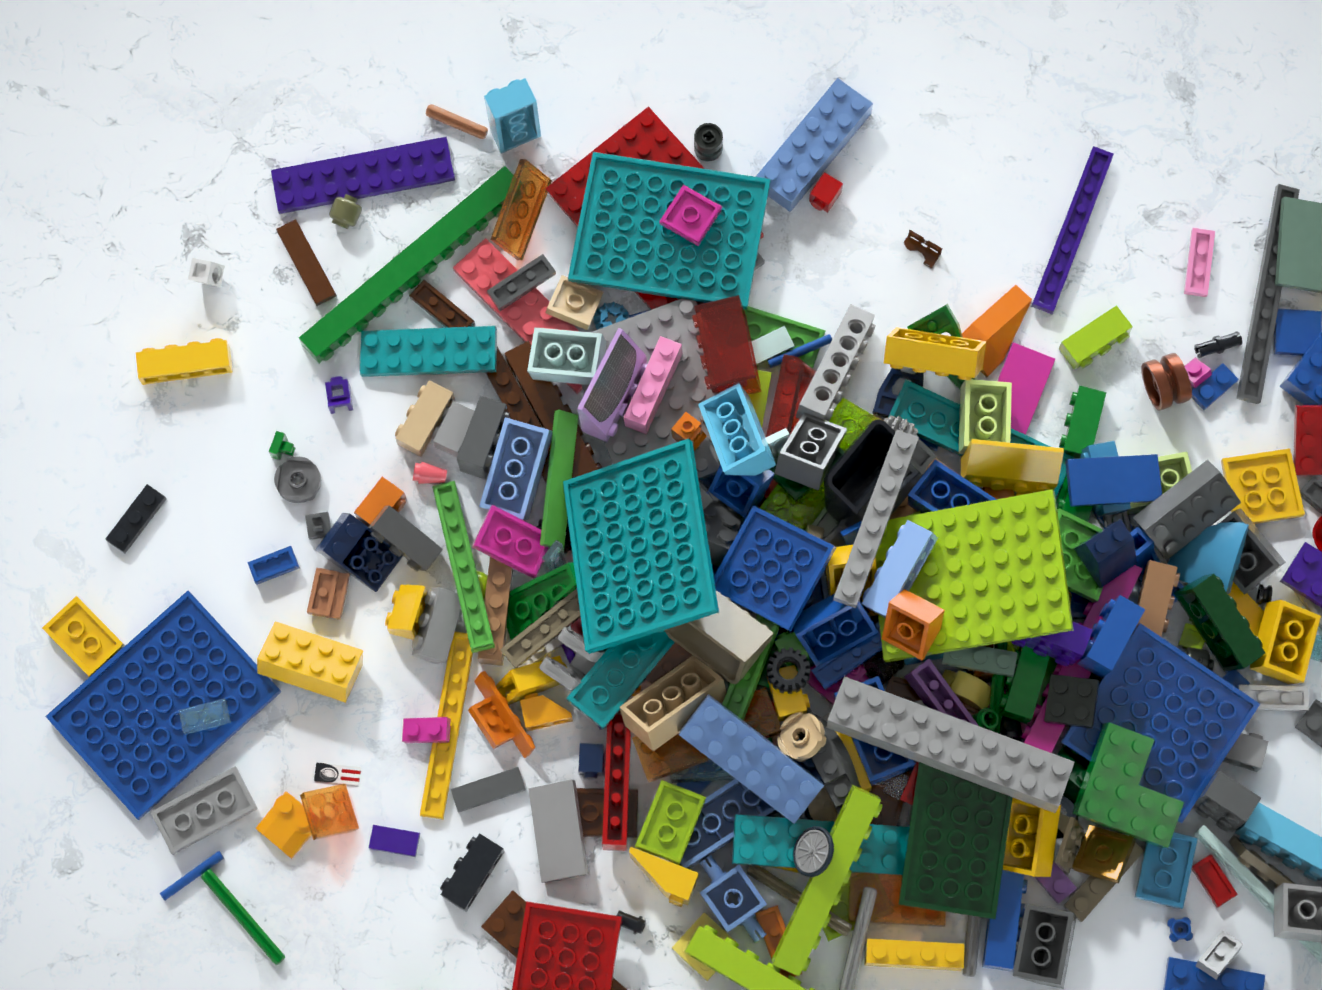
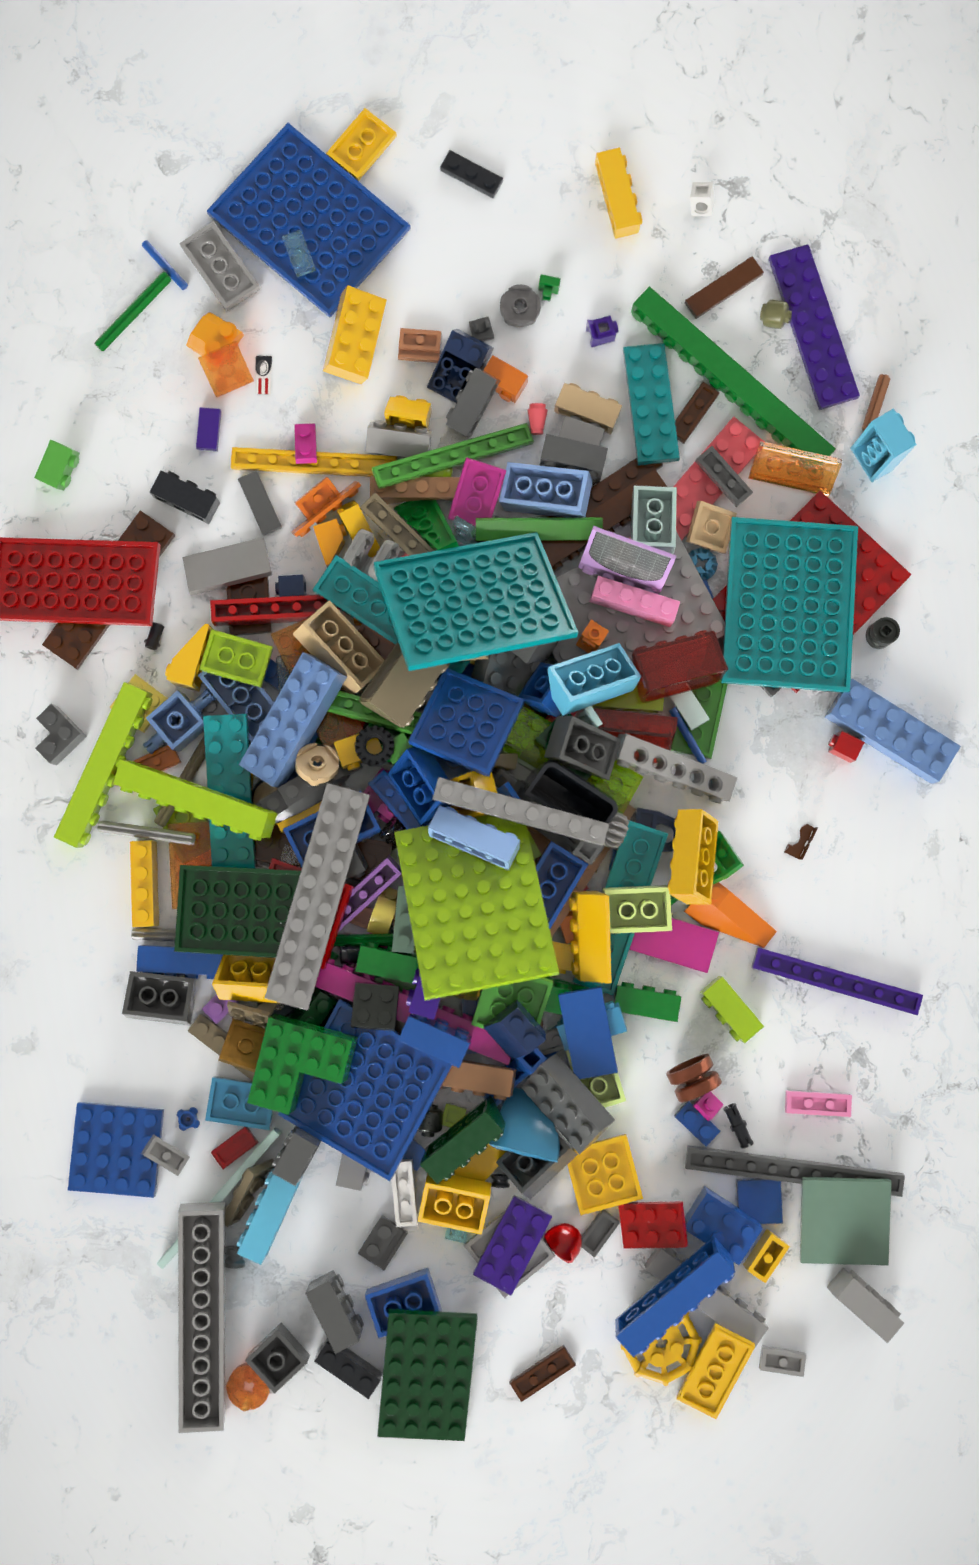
camera: 80 degrees right, 10 degrees up
(273, 565) = (440, 295): blue plate -> none
(690, 215) = (804, 620): dark pink plate -> none
(813, 851) = (214, 783): light grey wheel -> none
(912, 623) = (424, 853): orange slope -> none
(986, 718) = (355, 930): green cone -> none

